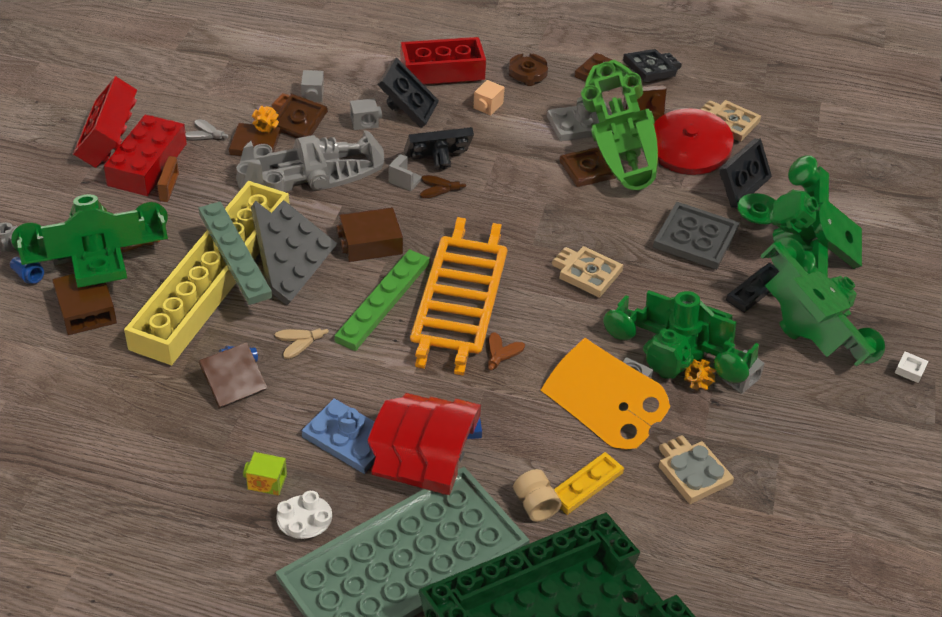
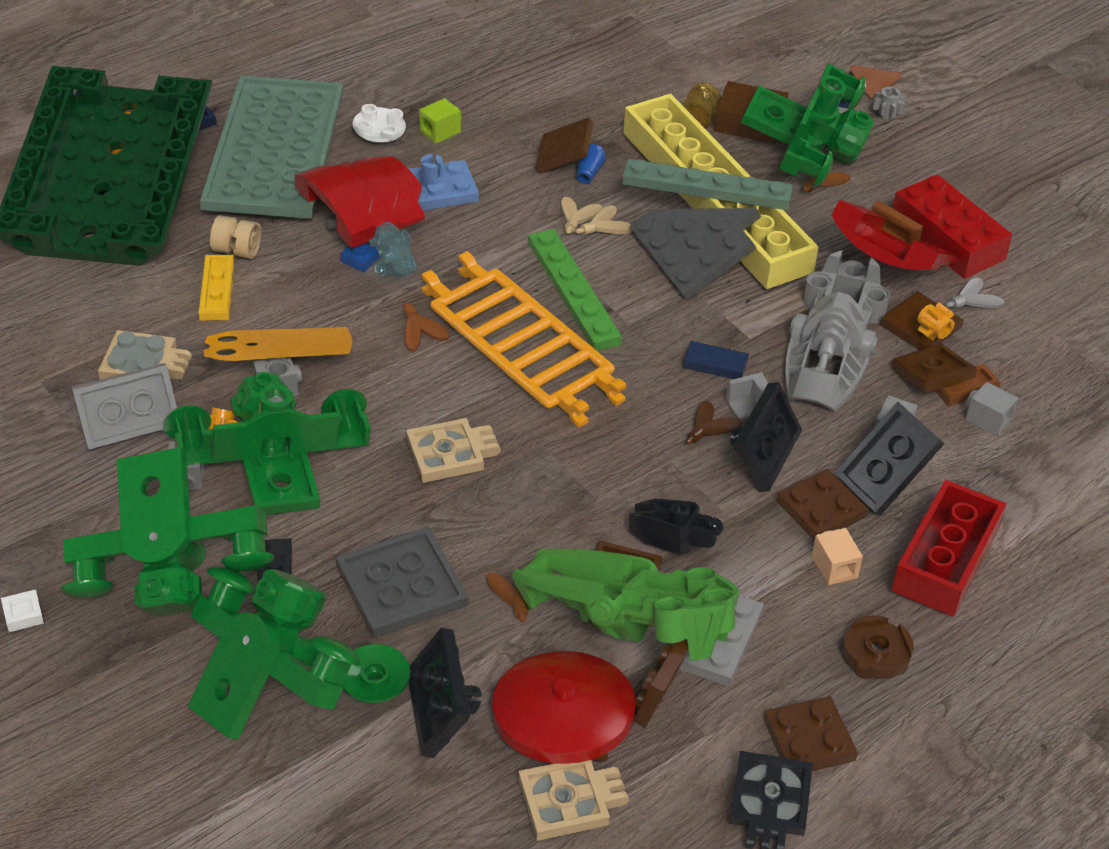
camera: 130 degrees right, 0 degrees up
(106, 122) = (1022, 205): red brick -> none
(106, 327) = (702, 103): none -> clear yellow wheel
(212, 145) = (865, 232): none -> red slope
(297, 321) = (603, 223): none -> tan piece
(370, 234) = (669, 318): reddish brown brick -> none
(380, 199) = (715, 360): none -> dark blue tile
(452, 117) = (822, 504): none -> reddish brown plate
(461, 389) = (393, 250): none -> clear light blue plate
(539, 153) = (673, 525): none -> black hinge
(646, 195) = (508, 594): none -> dark orange piece
(747, 424) = (124, 405): none -> light grey plate

